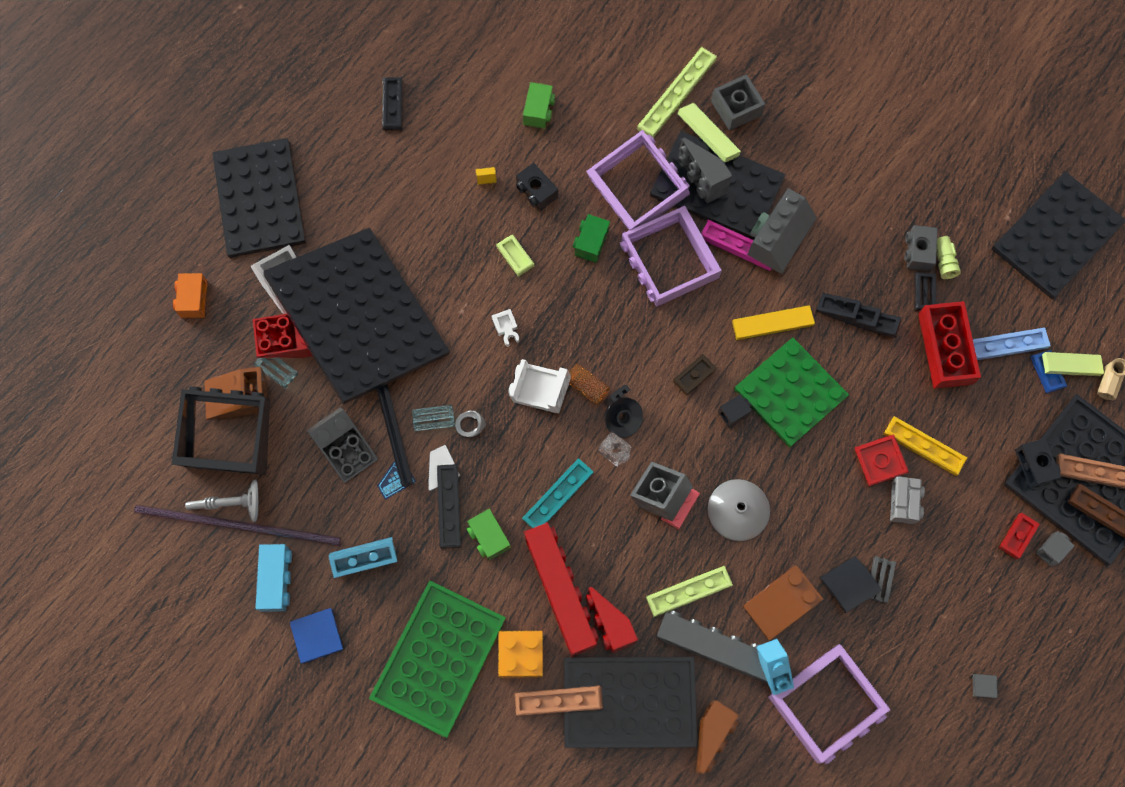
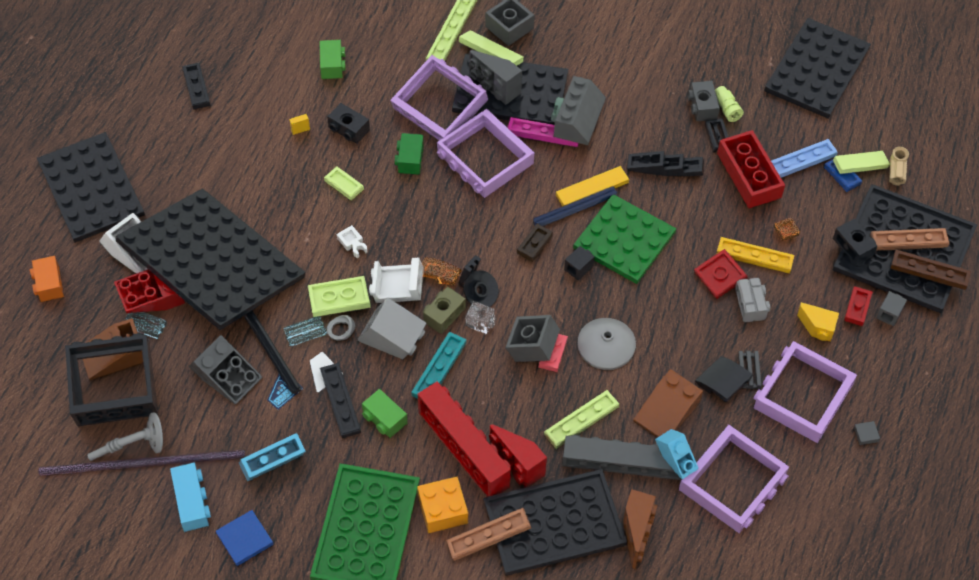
camera: 15 degrees left, 15 degrees down
(476, 387) = (338, 296): none -> yellowish green tile
(521, 442) = (393, 330): none -> light grey slope
(574, 441) = (442, 319): none -> olive brick
(748, 342) = (575, 206): none -> dark blue axle
(957, 649) = (789, 418): none -> lavender window
(968, 424) = (786, 229): none -> clear orange plate
(970, 544) = (818, 321): none -> yellow slope

